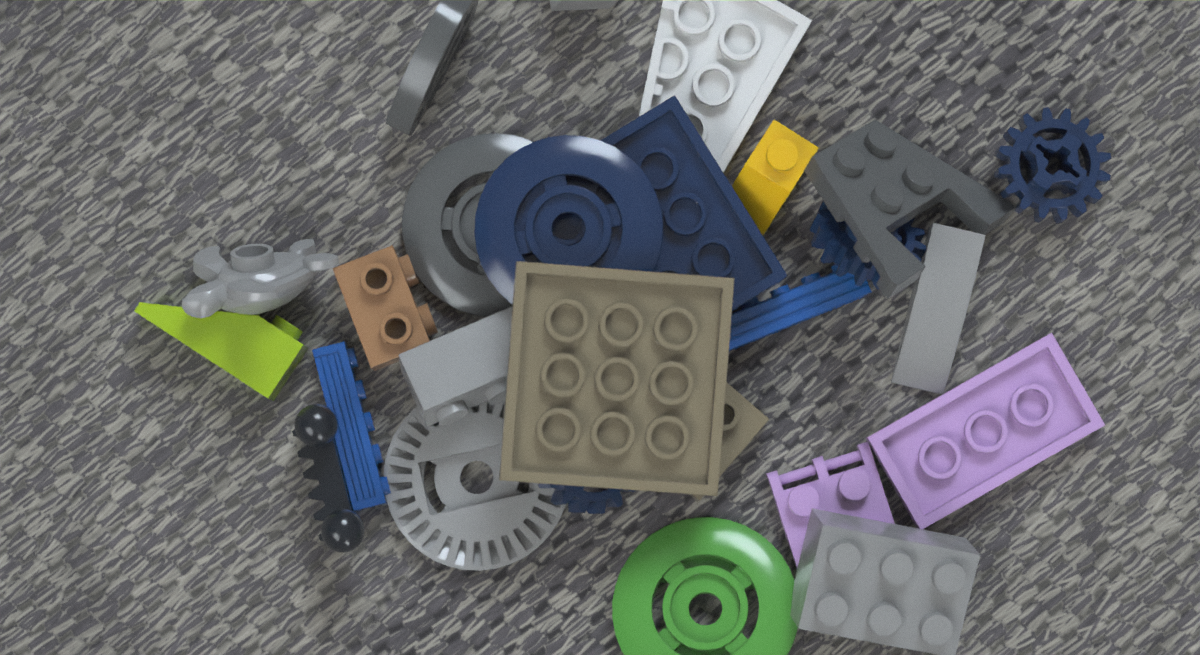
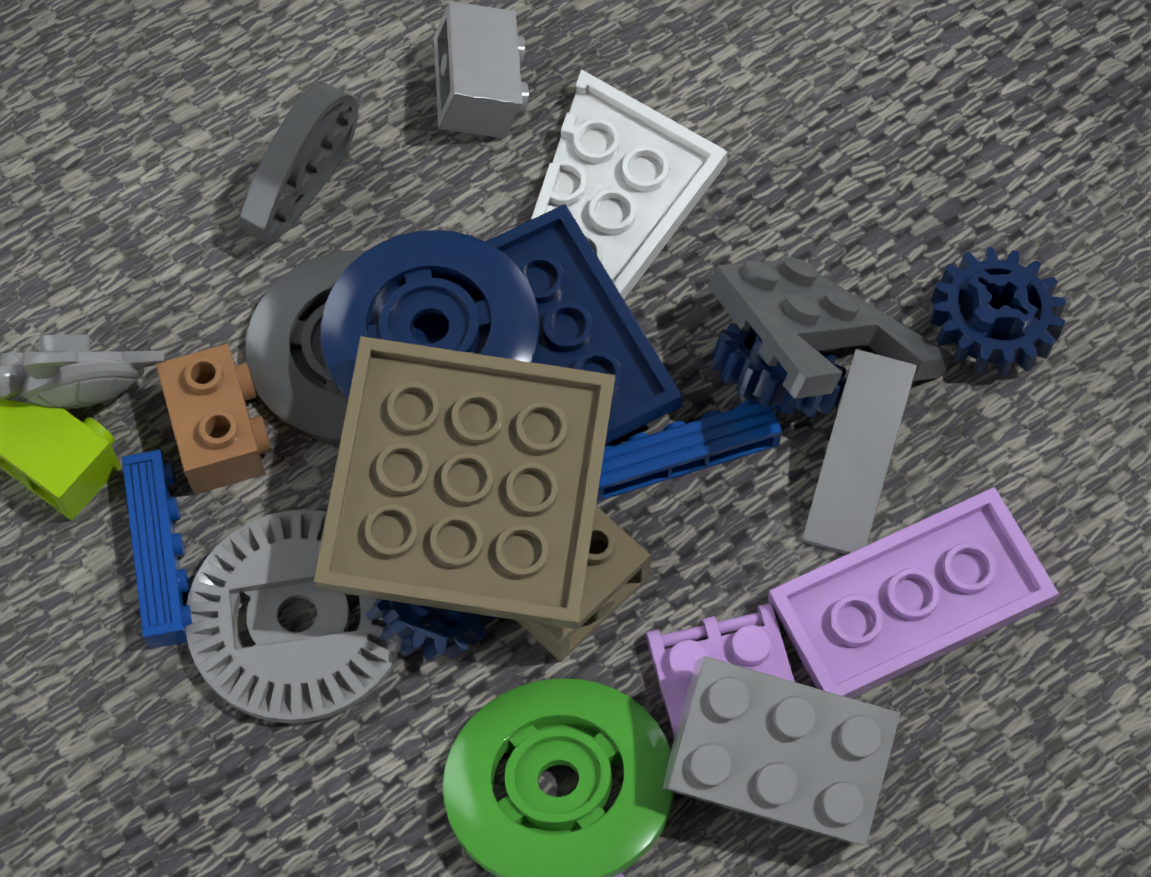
camera: 10 degrees right, 20 degrees down
(341, 526) = (120, 636): black gear -> none
(459, 369) = (281, 482): light grey brick -> none
(772, 173) = (674, 297): yellow slope -> none

